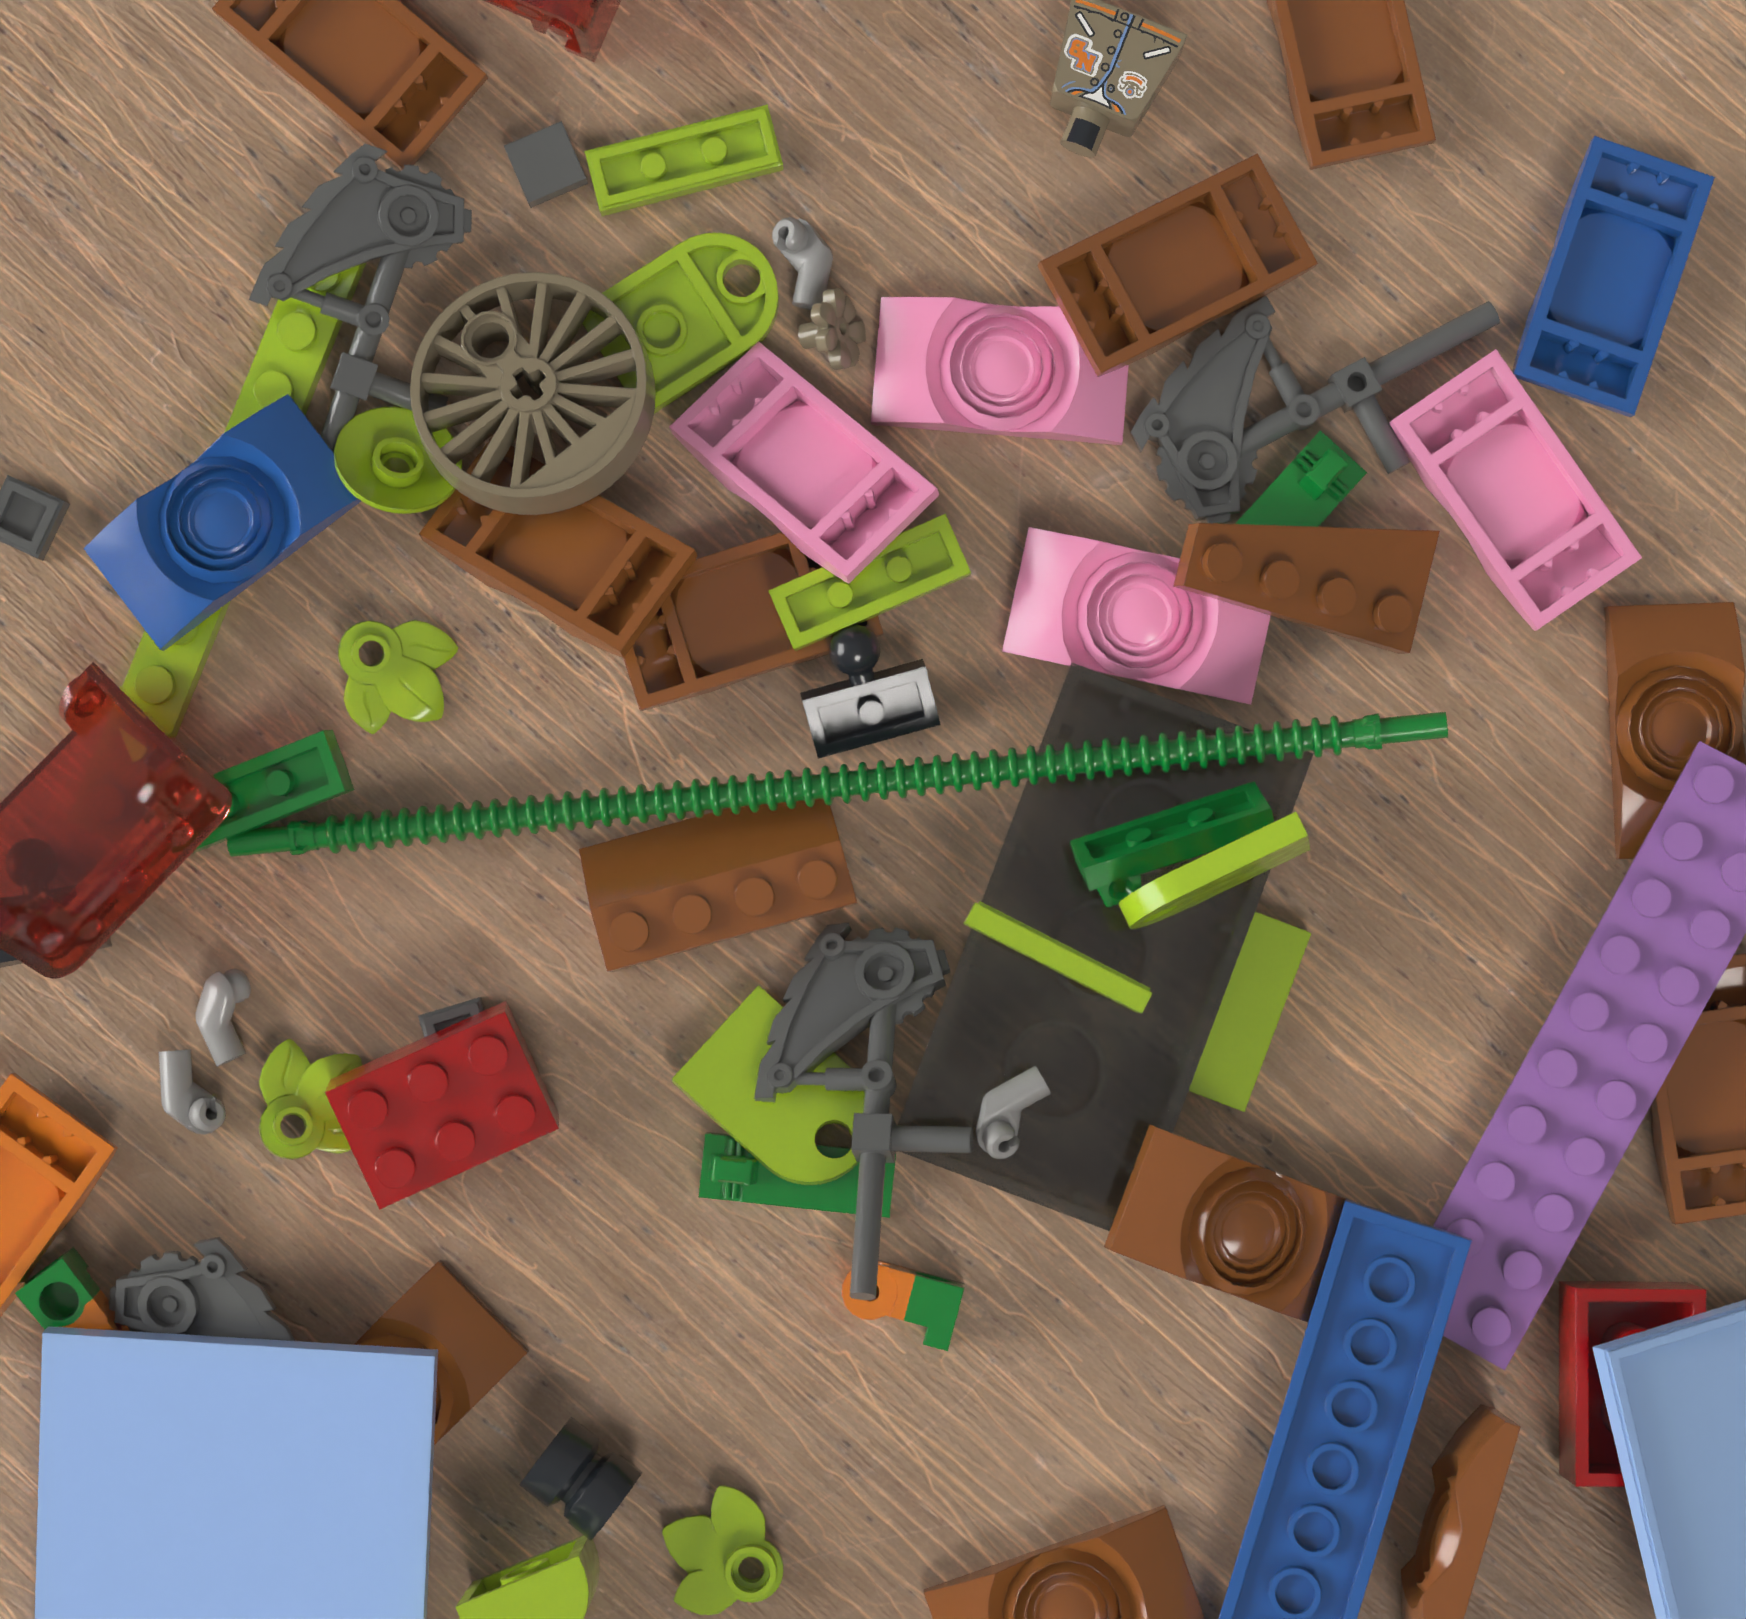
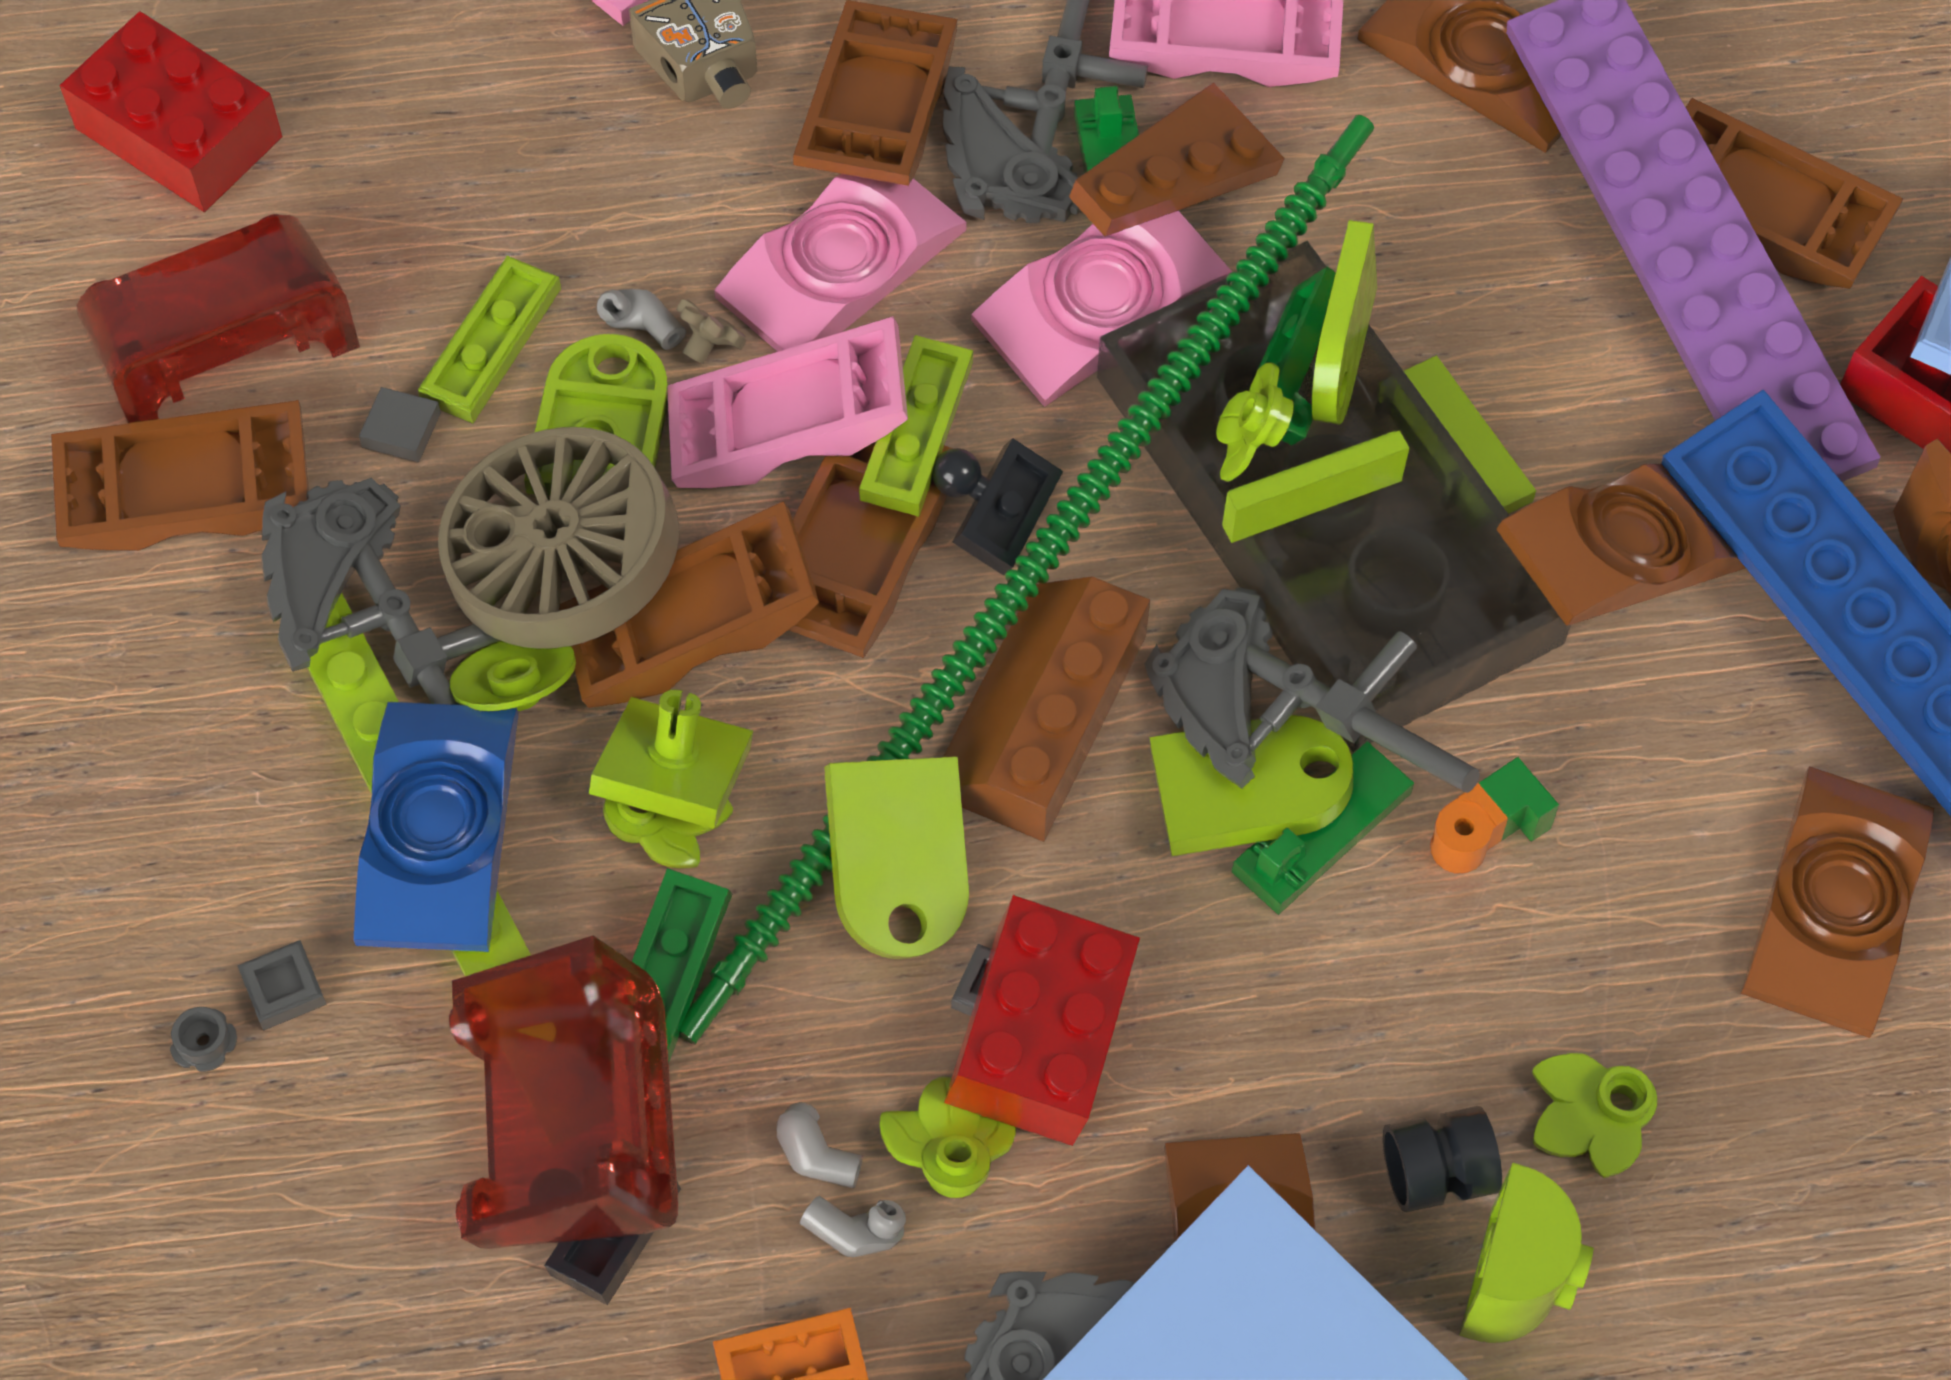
camera: 50 degrees left, 25 degrees down
(424, 647) = (671, 760): none -> lime tile
(494, 879) = (895, 846): none -> lime tile
(1002, 1111) = (1399, 610): light grey arm -> none
(1069, 865) = (1253, 420): none -> lime plate

